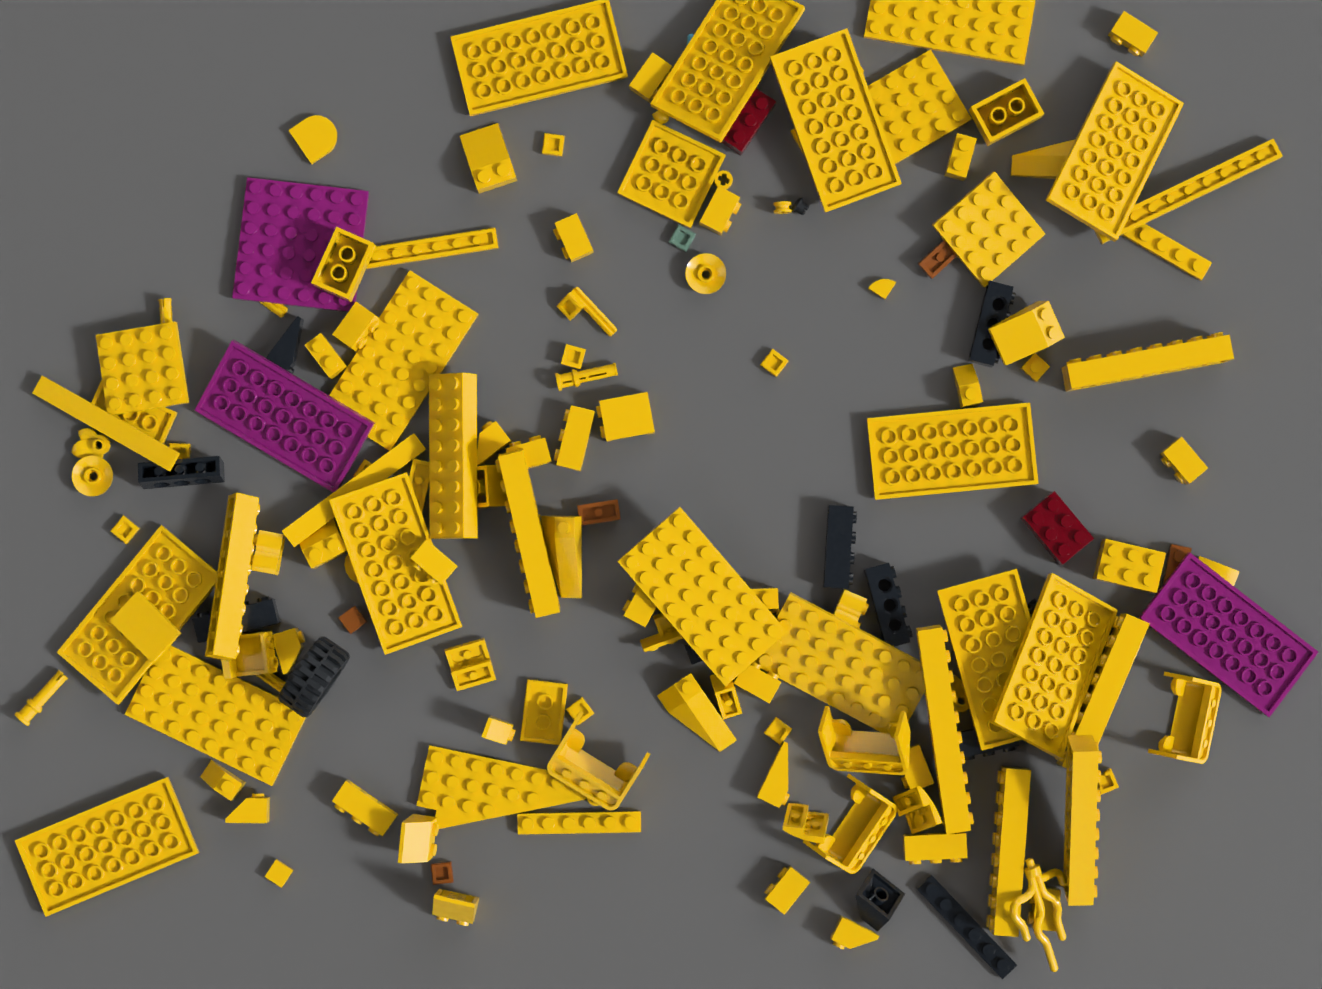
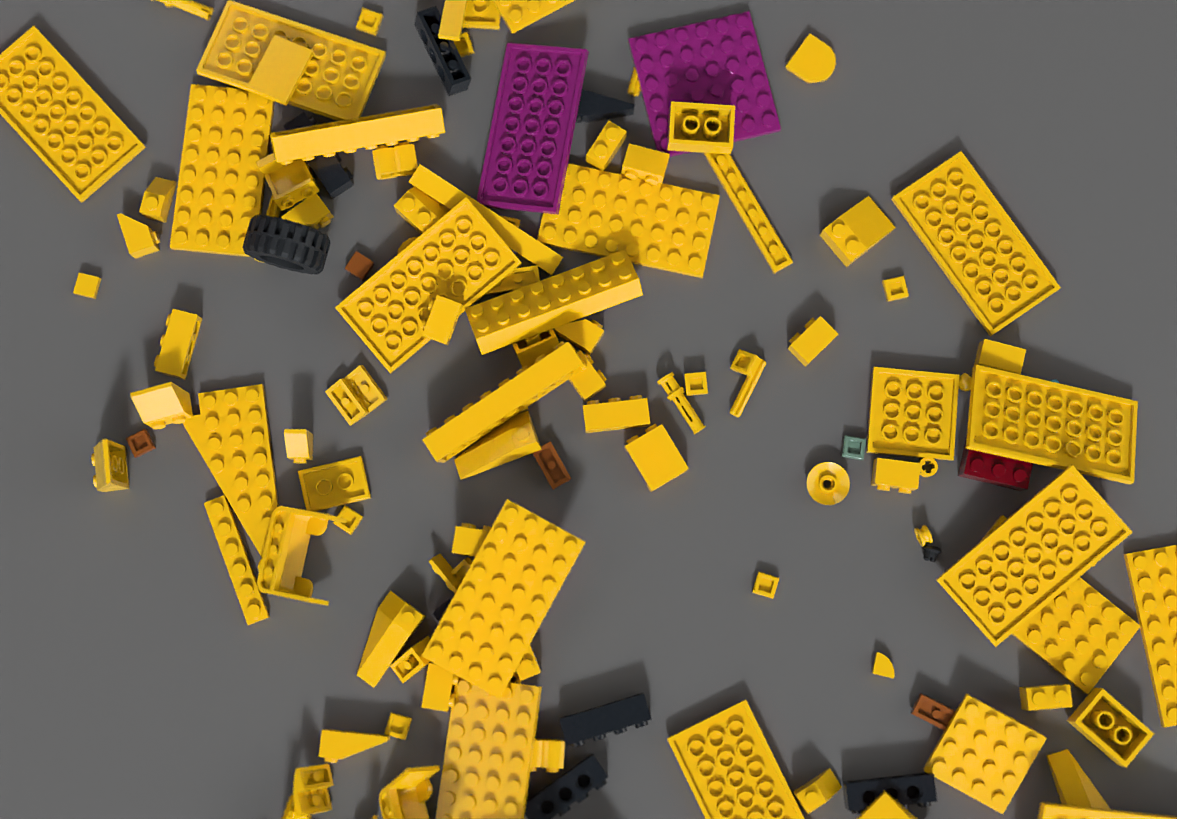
camera: 65 degrees right, 5 degrees down
(786, 889) = (239, 794): yellow brick -> none

